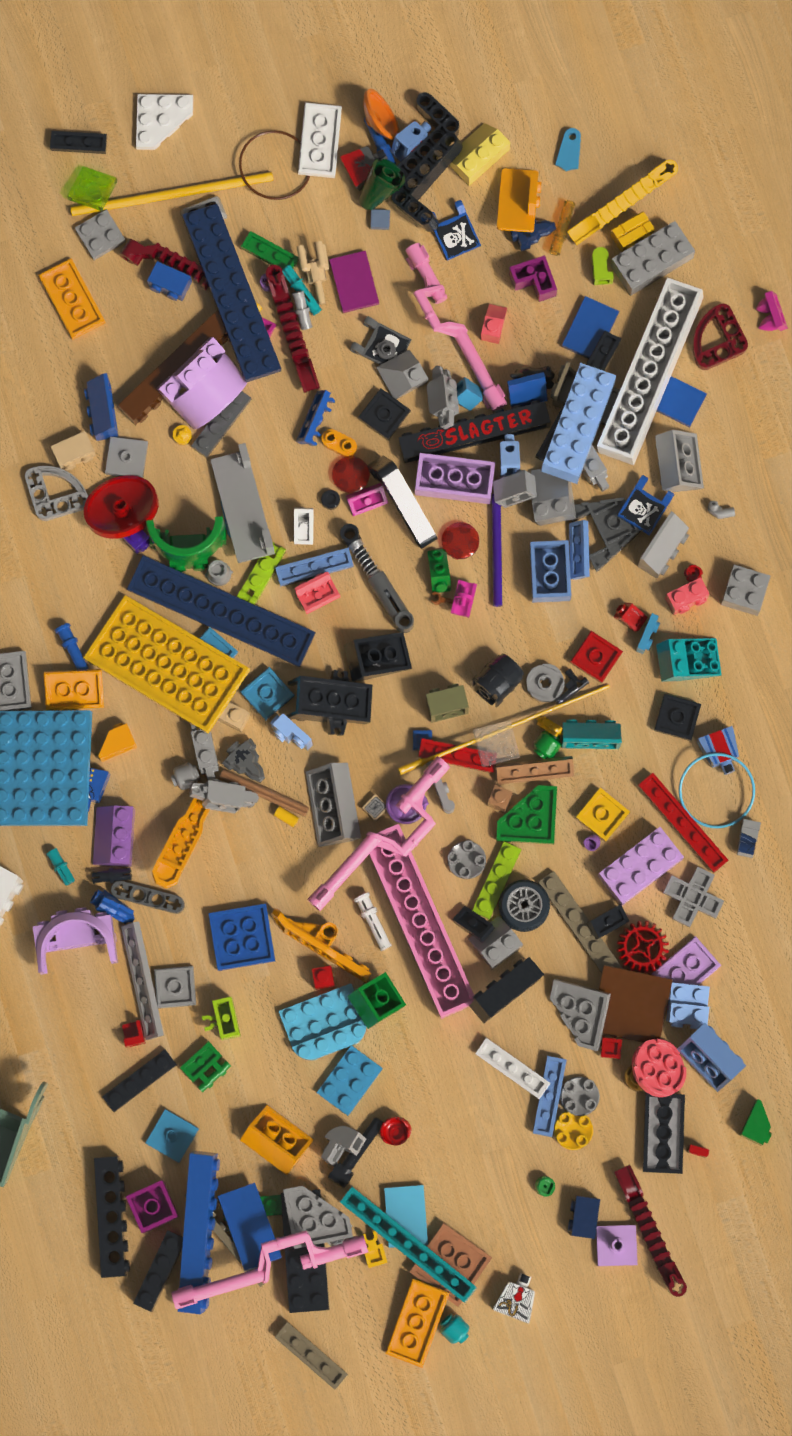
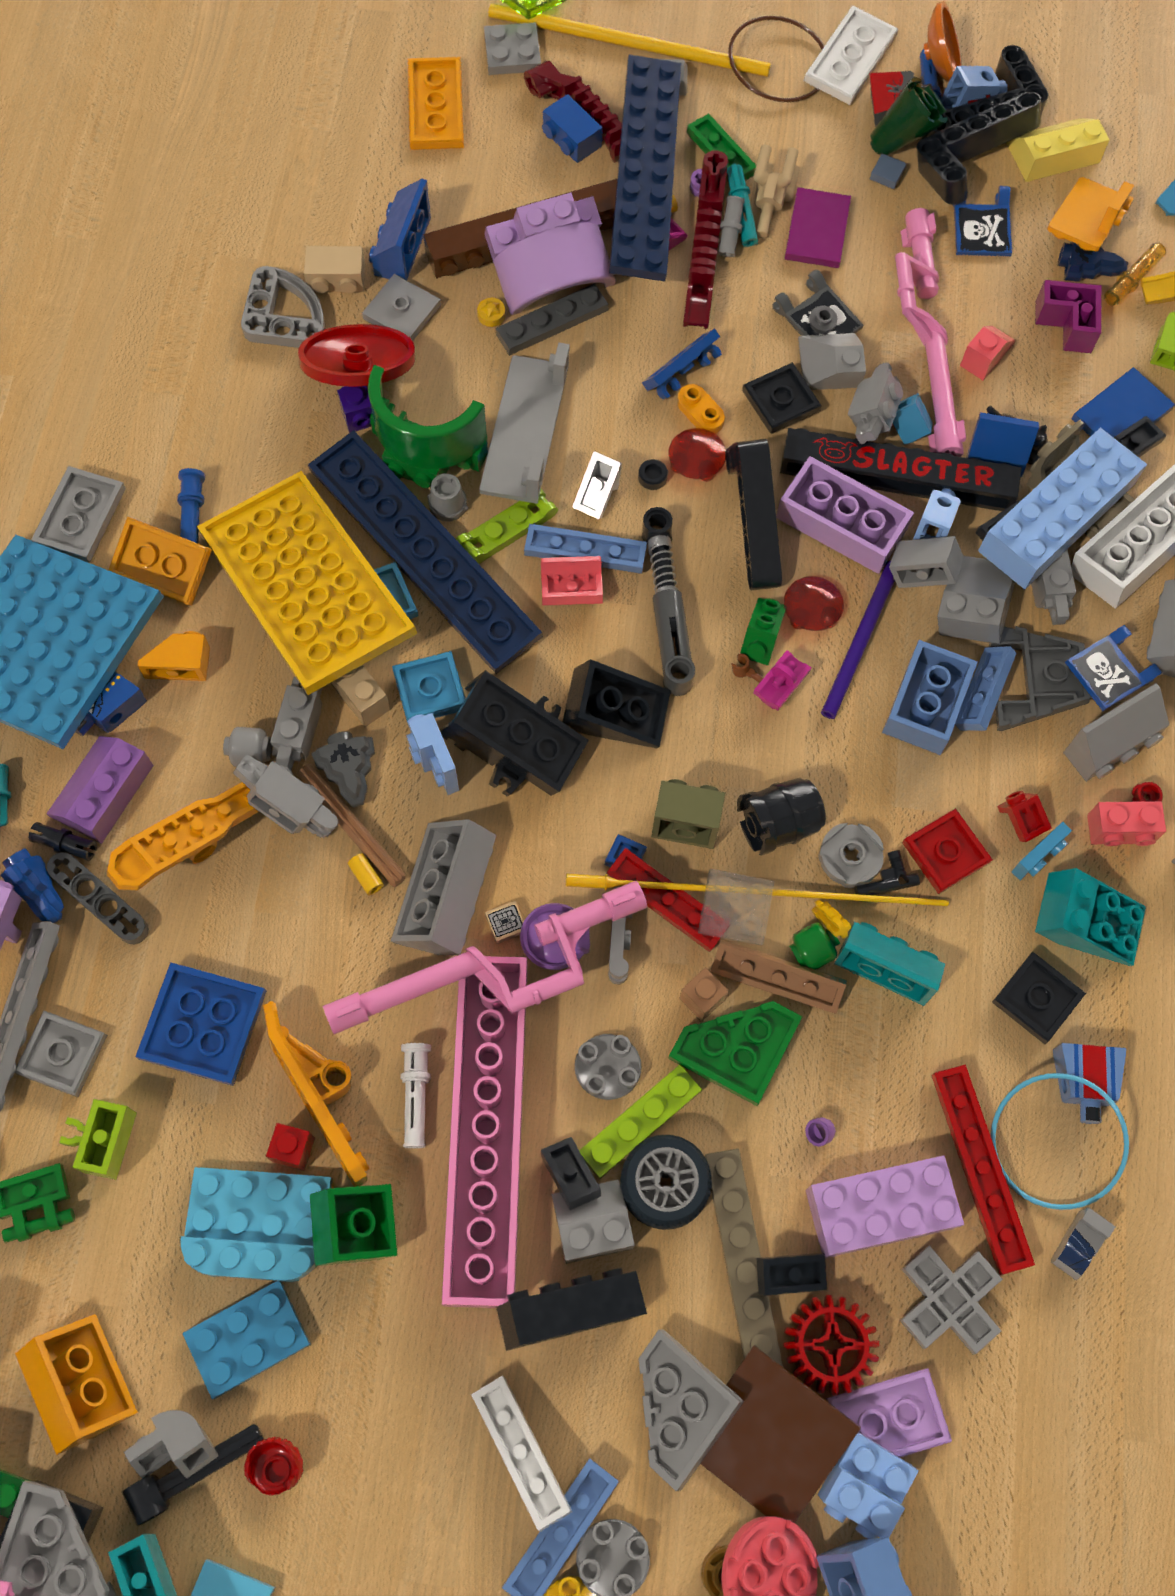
camera: 20 degrees right, 10 degrees down
(367, 499) = (704, 496): dark pink slope -> none
(602, 814) = (856, 1095): yellow plate -> none
(611, 1048) = (703, 1498): red plate -> none

